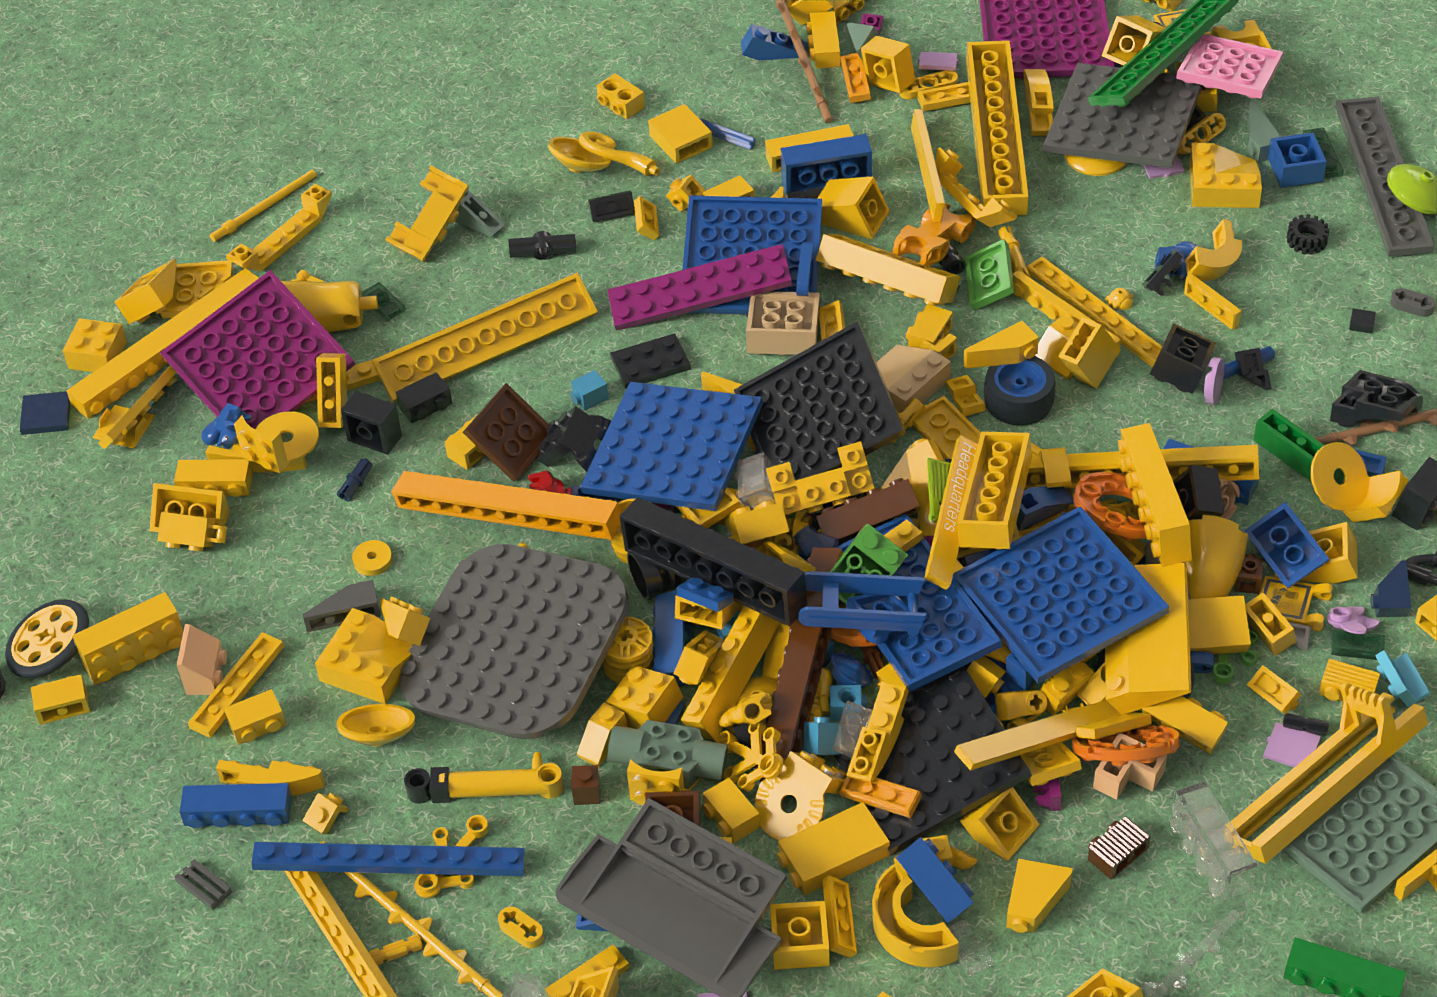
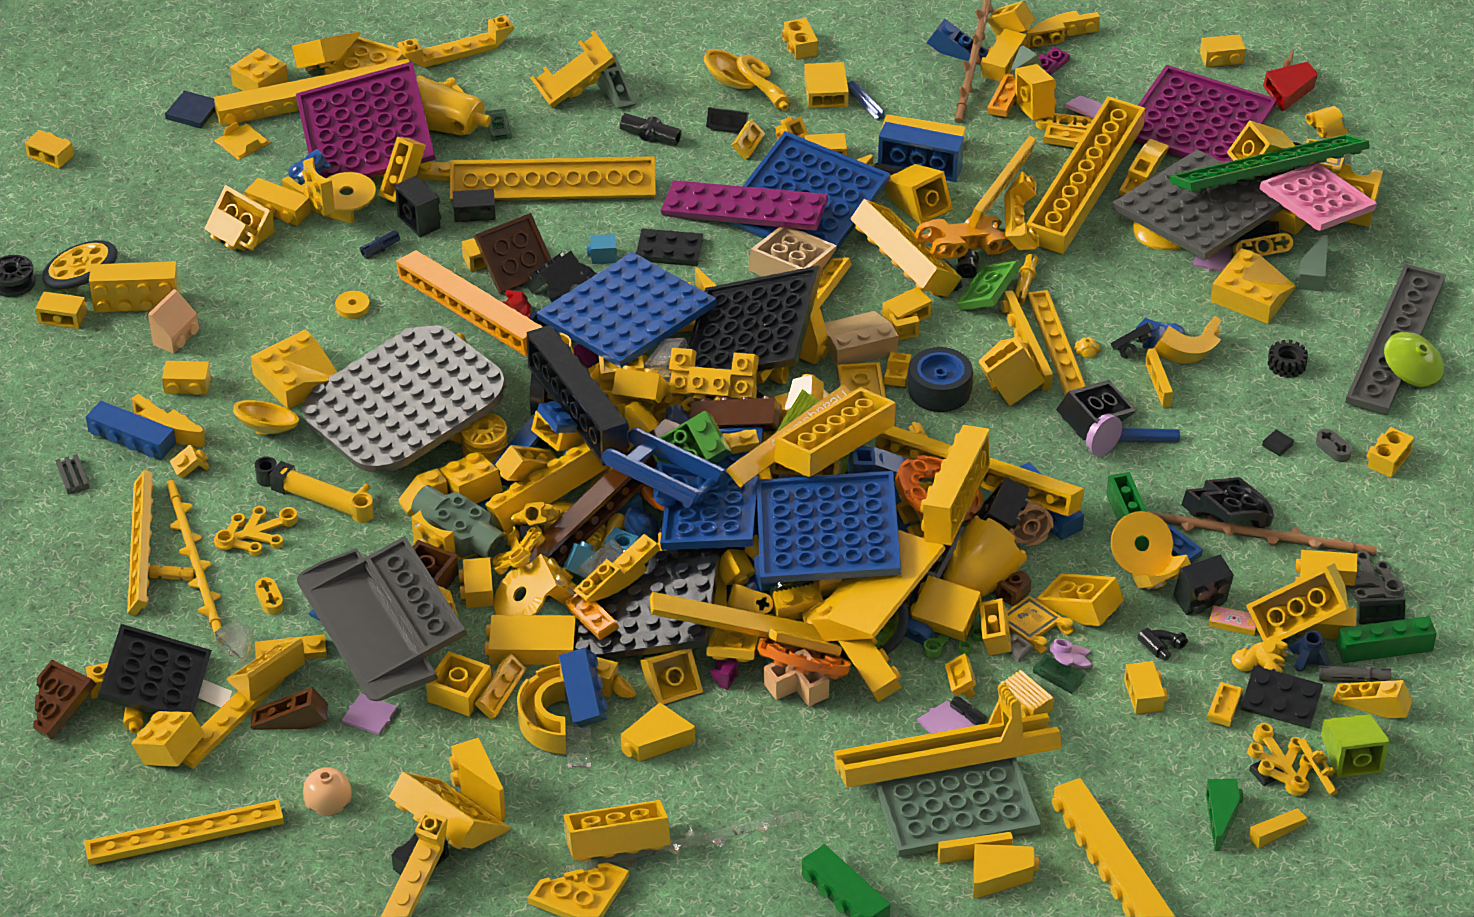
camera: 25 degrees right, 5 degrees down
(140, 407) = (258, 130): yellow plate -> none
(231, 225) = (424, 25): yellow bar -> none
(236, 684) = (191, 349): yellow plate -> none
(337, 607) = (320, 326): dark grey slope -> none
(388, 858) = (207, 509): blue plate -> none
(404, 620) = (335, 353): yellow slope -> none
(585, 785) = (385, 520): reddish brown brick -> none
(805, 269) = (834, 221): blue beam -> none
(910, 413) = (842, 359): yellow pin -> none
(1003, 348) = (942, 339): yellow slope -> none
(1055, 467) = (911, 443): yellow slope -> none
(1118, 847) = (746, 730): reddish brown brick -> none
(1213, 843) = (815, 755): clear brick -> none
(1251, 367) = (1149, 438): black slope -> none
(1286, 545) = (1055, 574): blue slope -> none
(1297, 159) = (1325, 296): blue brick -> none
(1333, 165) = (1359, 301): clear green plate -> none
(1393, 594) = (1117, 646): dark blue slope -> none
(1404, 678) = (1070, 710): medium azure bracket -> none

